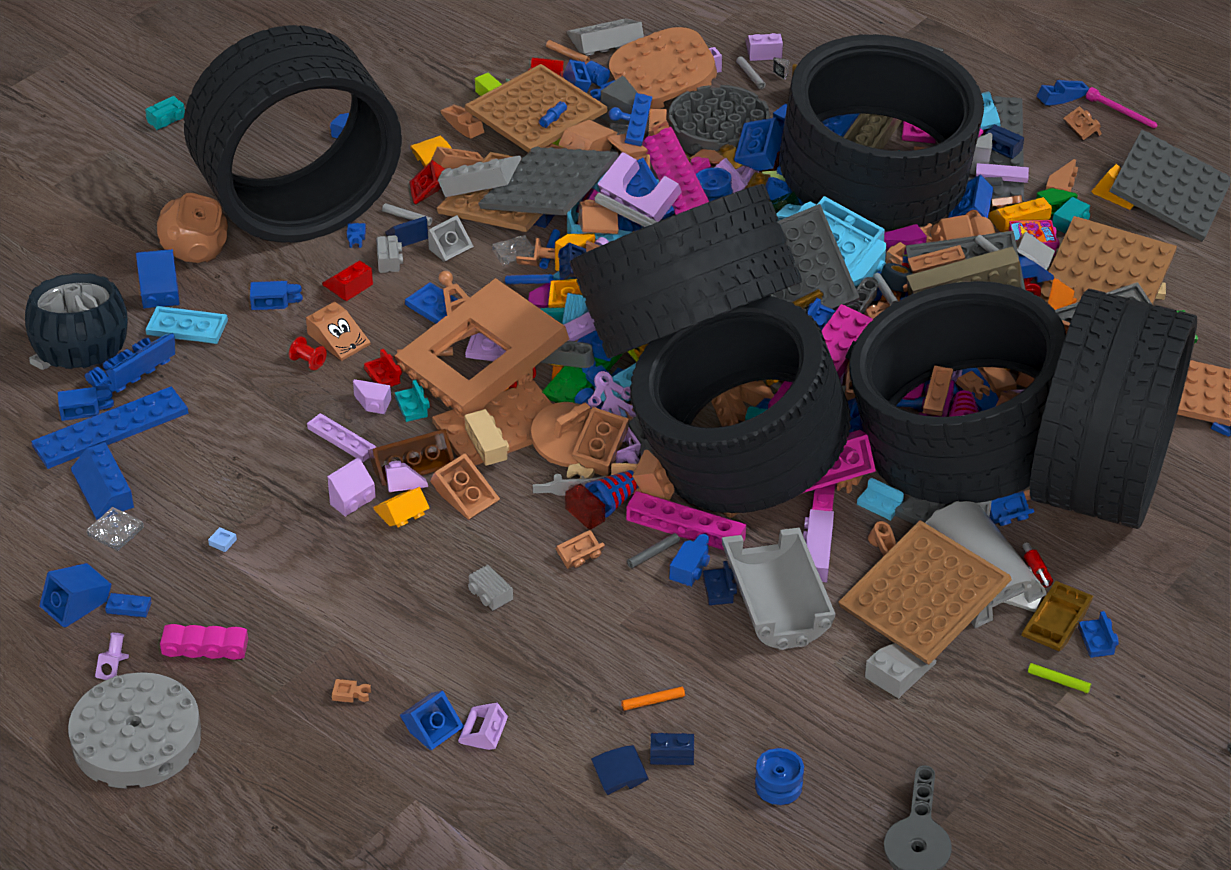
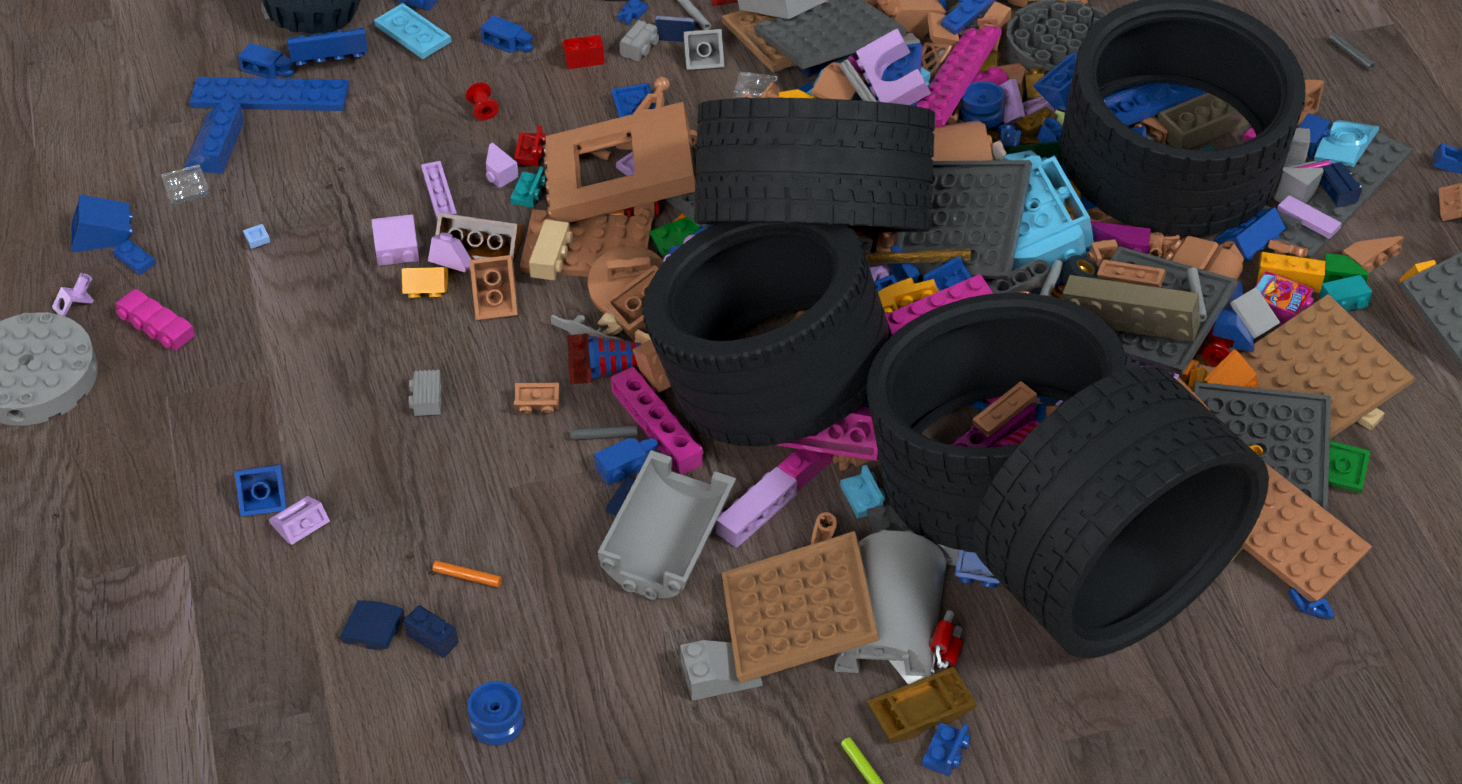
camera: 35 degrees right, 5 degrees up
(336, 331) = (527, 92): nougat slope -> none
(348, 690) = (222, 423): nougat plate -> none

